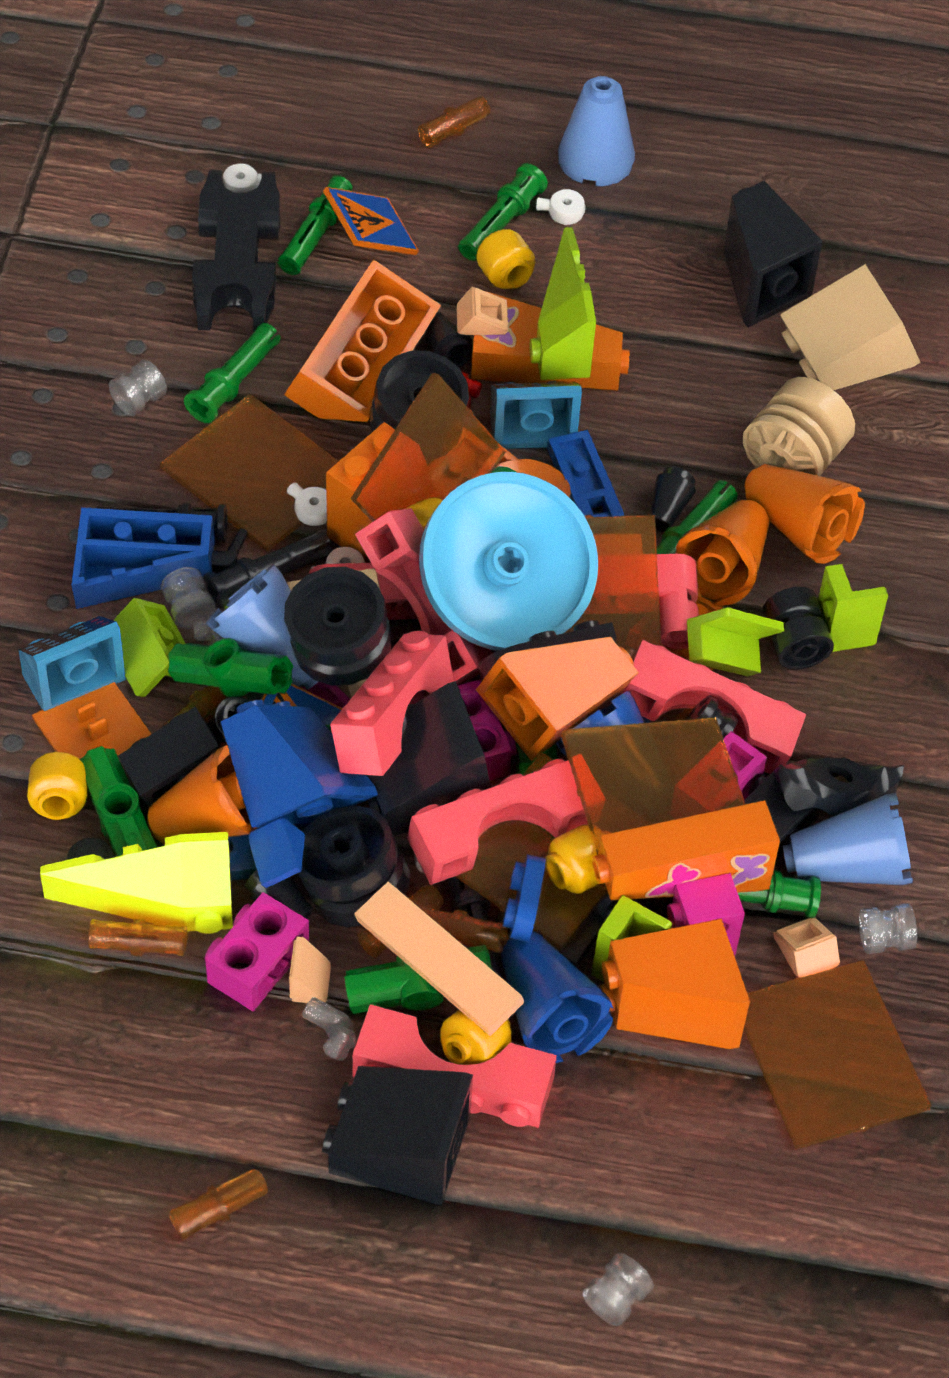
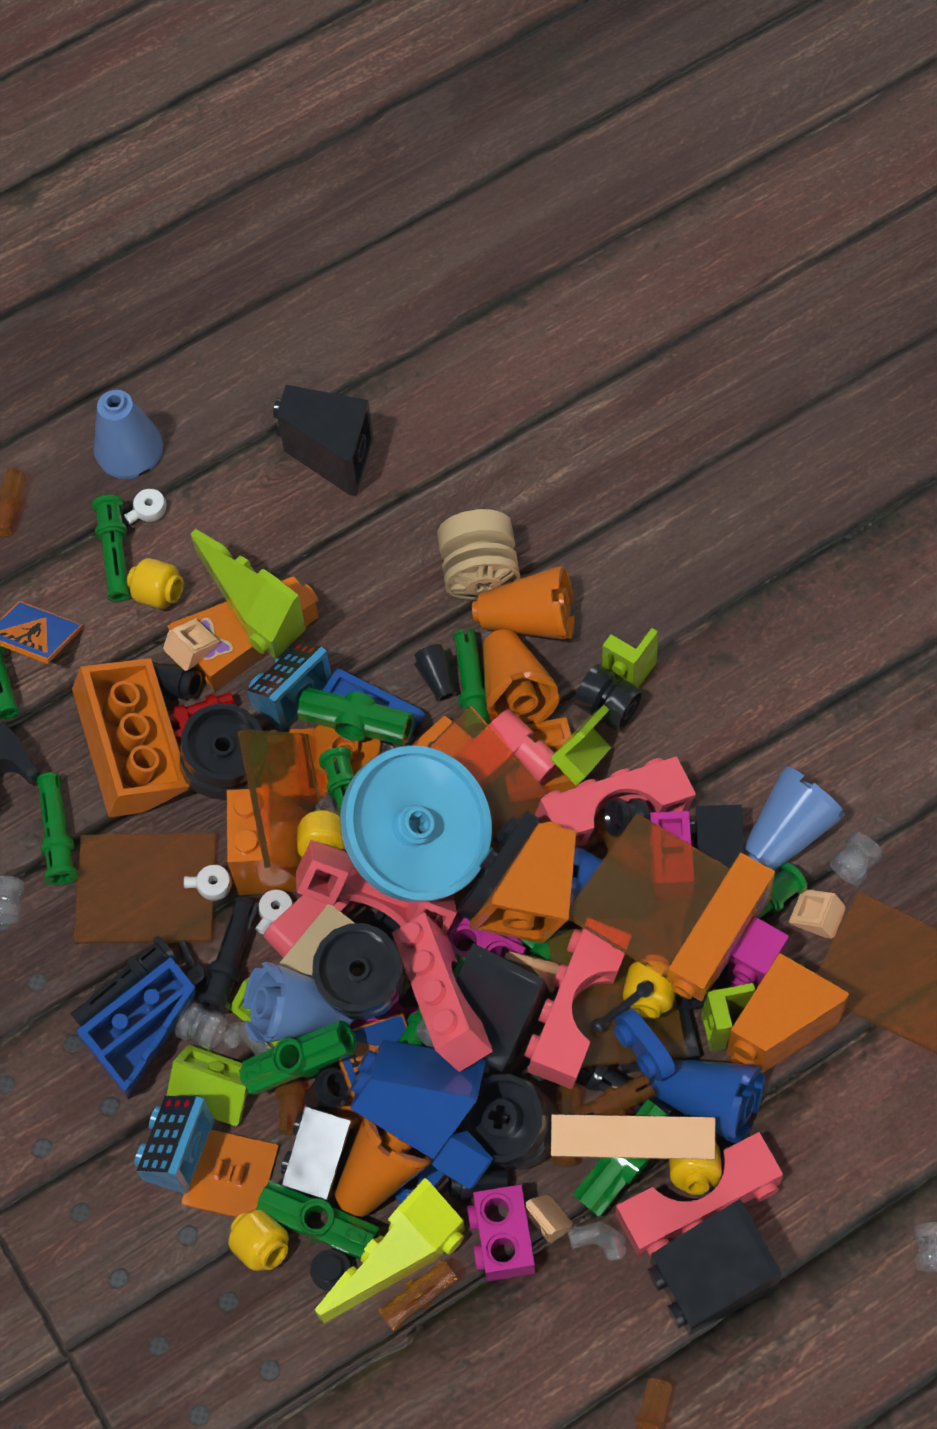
camera: 35 degrees left, 10 degrees up
(497, 762) = (537, 966): none -> light nougat slope
(558, 464) = (355, 716): none -> green piece
(566, 843) = (644, 990): none -> black hinge
(813, 783) = (731, 805): black piece -> none
(848, 333) = (433, 450): tan slope -> none

